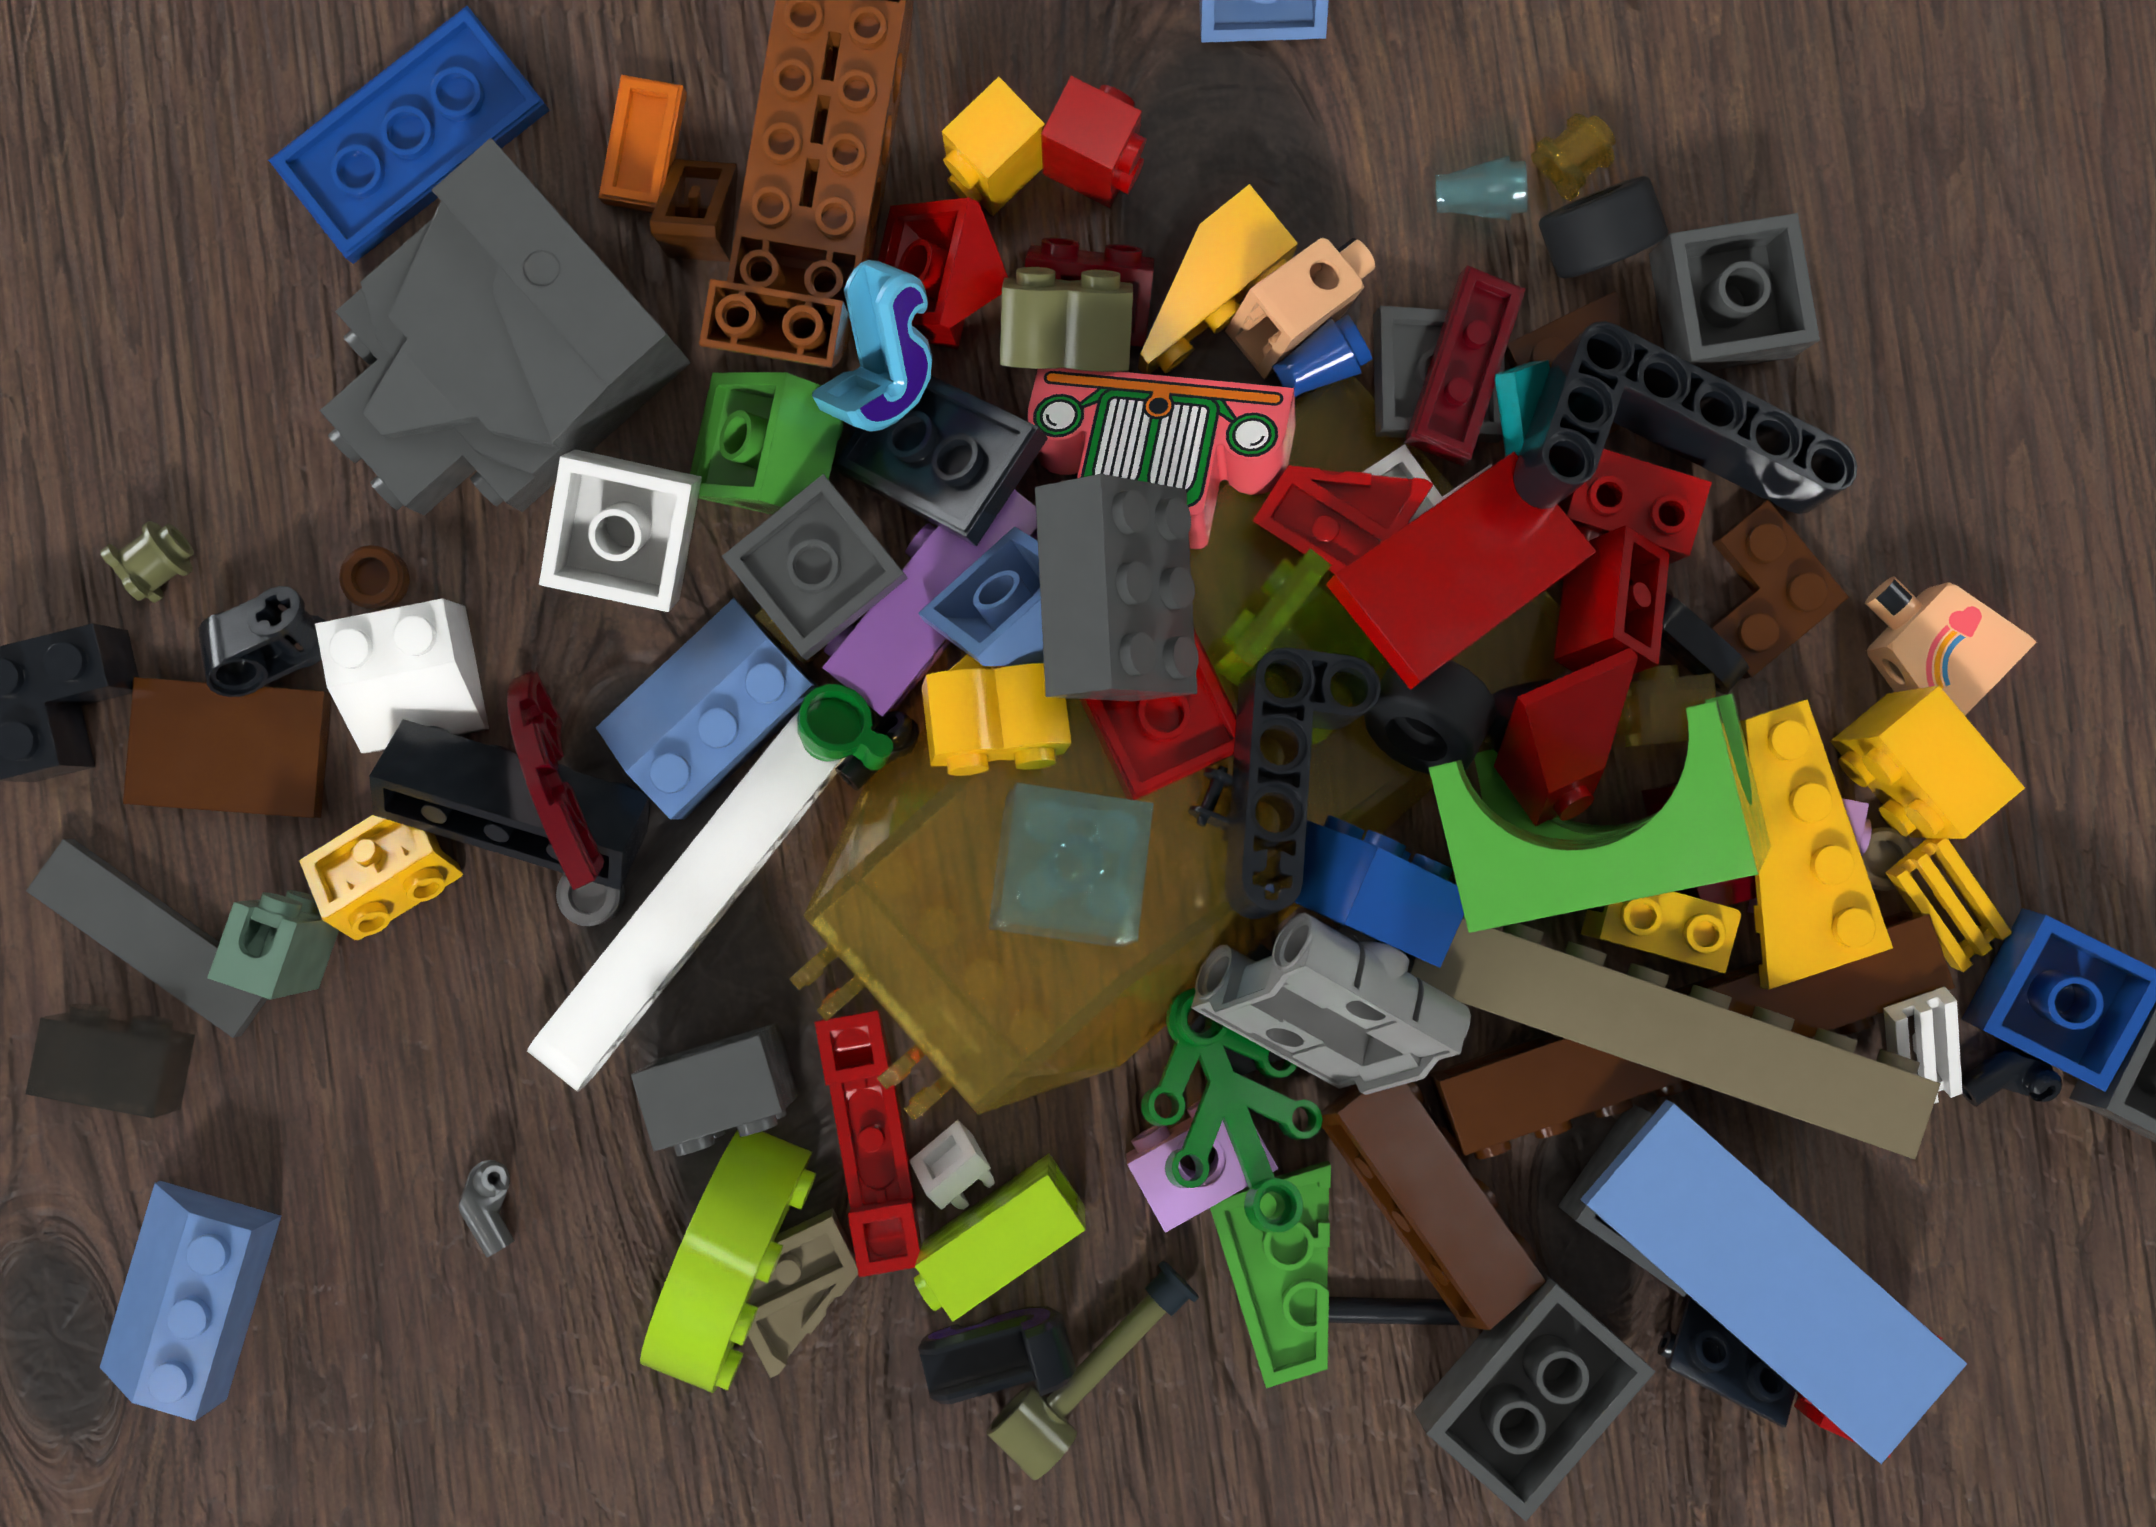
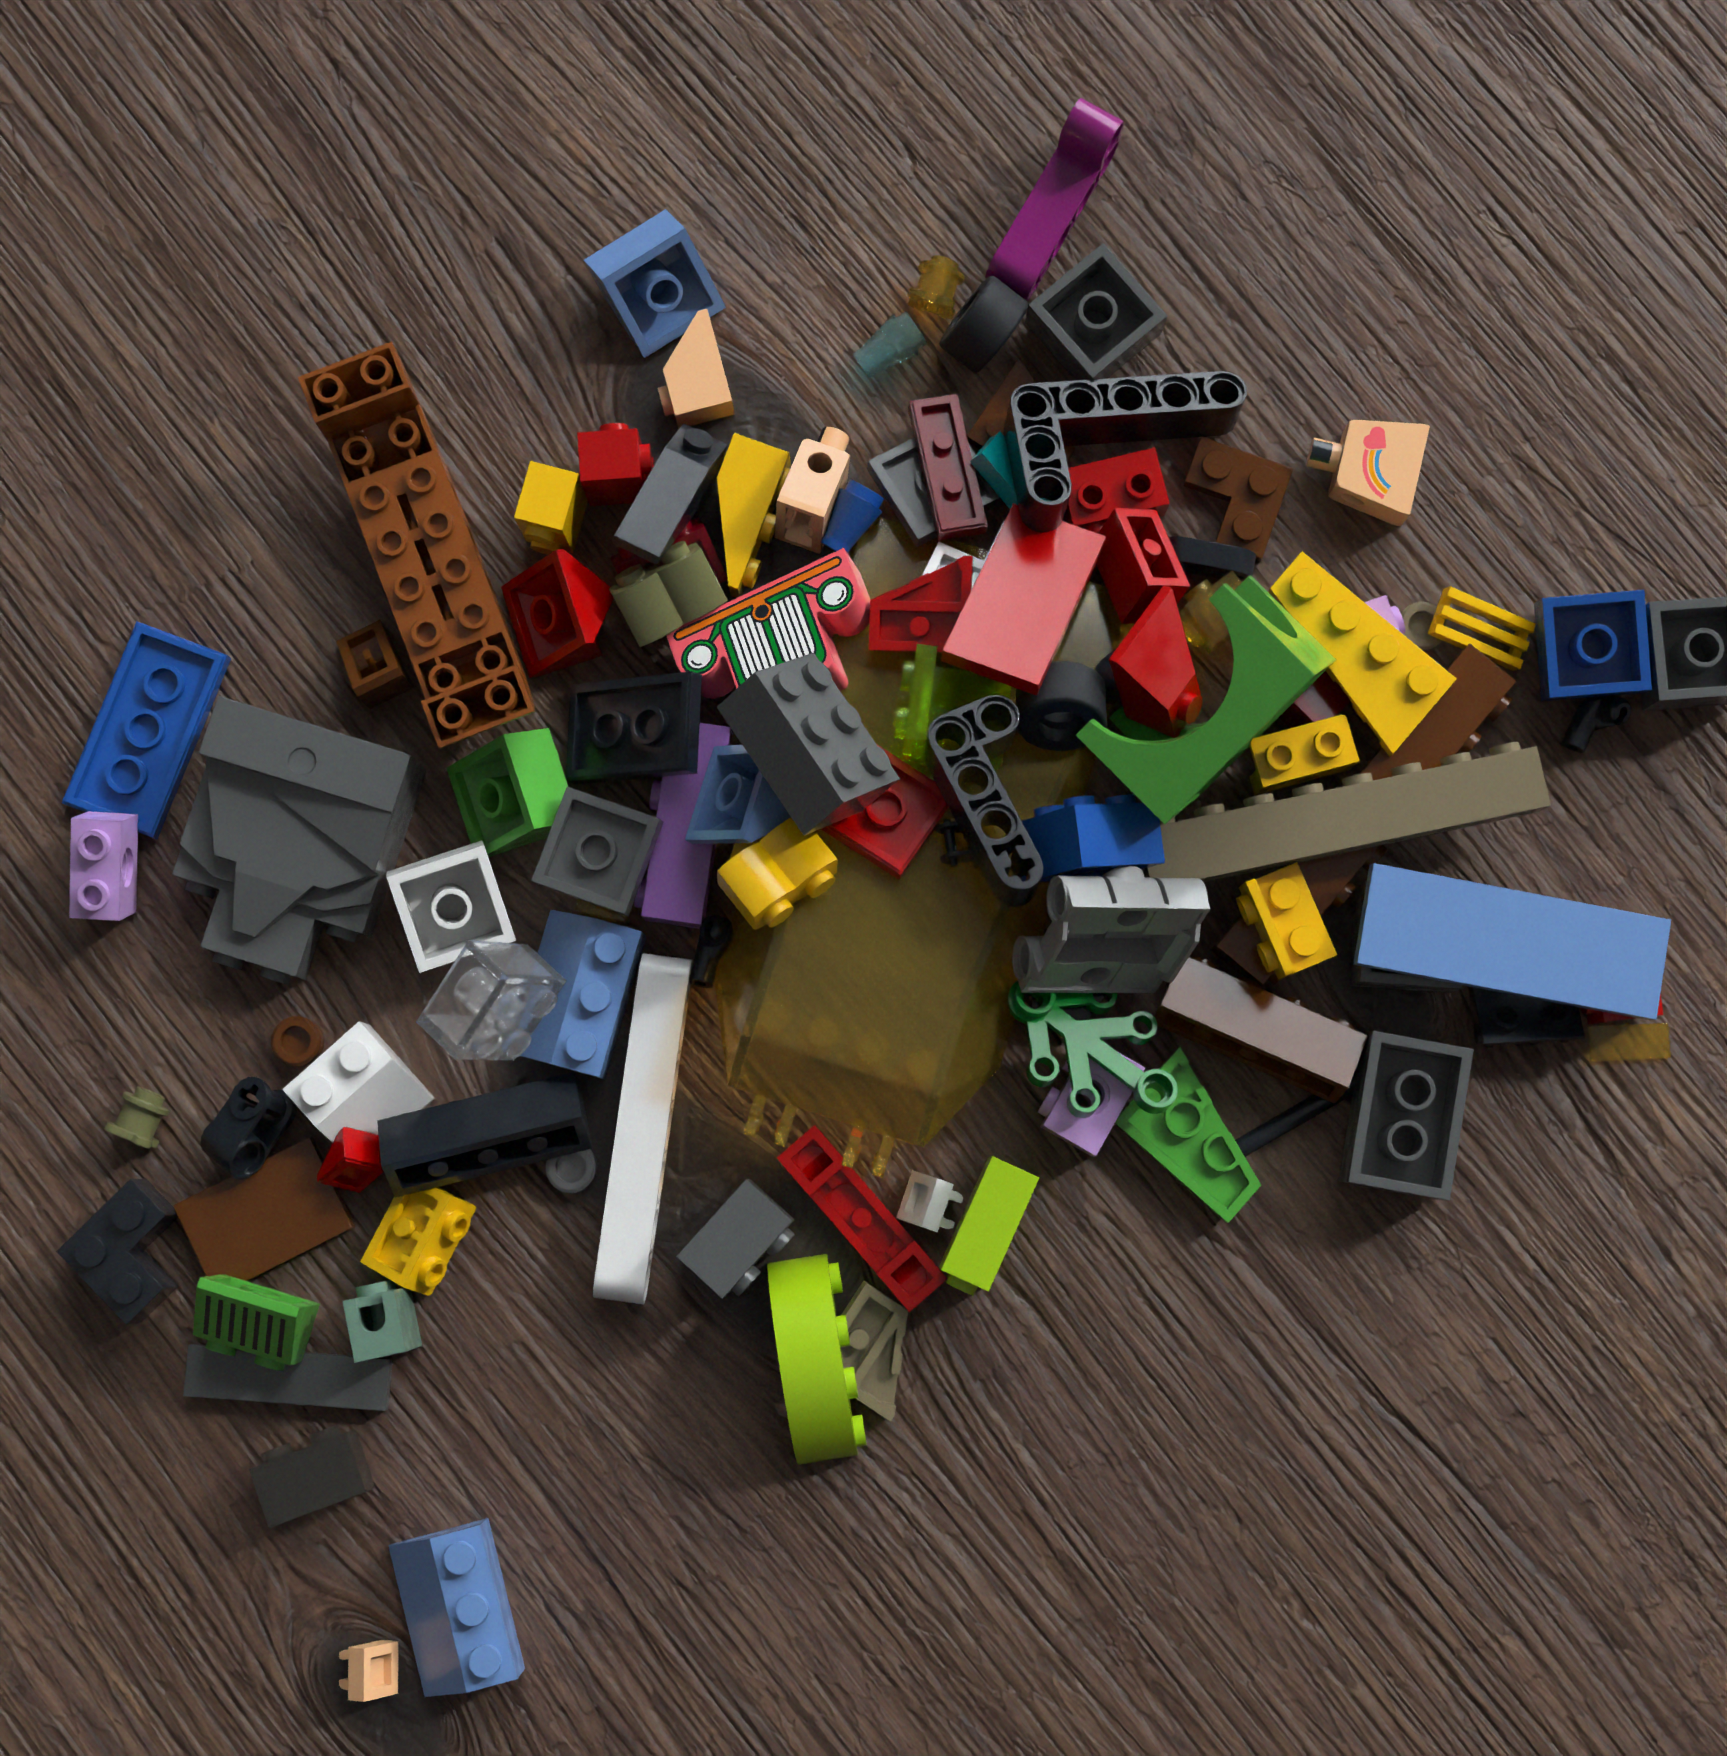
camera: 25 degrees left, 5 degrees down
(54, 1308) = (371, 1670): none -> light nougat tile
(138, 856) = (253, 1319): none -> bright green slope
(267, 256) = (103, 865): none -> lavender brick
(350, 744) = (352, 1160): none -> red slope
(481, 1205) = (622, 1422): dark grey arm -> none
(539, 748) = (512, 1101): dark red tile -> none
(598, 664) = (491, 1001): none -> clear brick
(642, 142) = (309, 644): orange tile -> none
(838, 724) = (674, 946): green piece -> none
(890, 350) = (560, 679): medium azure animal -> none
(998, 1355) = (1034, 1309): black animal -> none
(1035, 1427) = (1088, 1344): olive piece -> none
(1071, 865) = (885, 939): clear light blue brick -> none
(1137, 211) = (671, 493): none -> slope
(1244, 96) = (696, 377): none -> light nougat slope
(1532, 1104) = (1286, 921): none -> yellow bracket
(1777, 130) = (1057, 198): none -> magenta beam
(1824, 1451) = (1629, 1042): none -> clear yellow window
(1926, 765) = (1406, 548): yellow brick -> none
(1934, 1037) = (1552, 741): white tile -> none

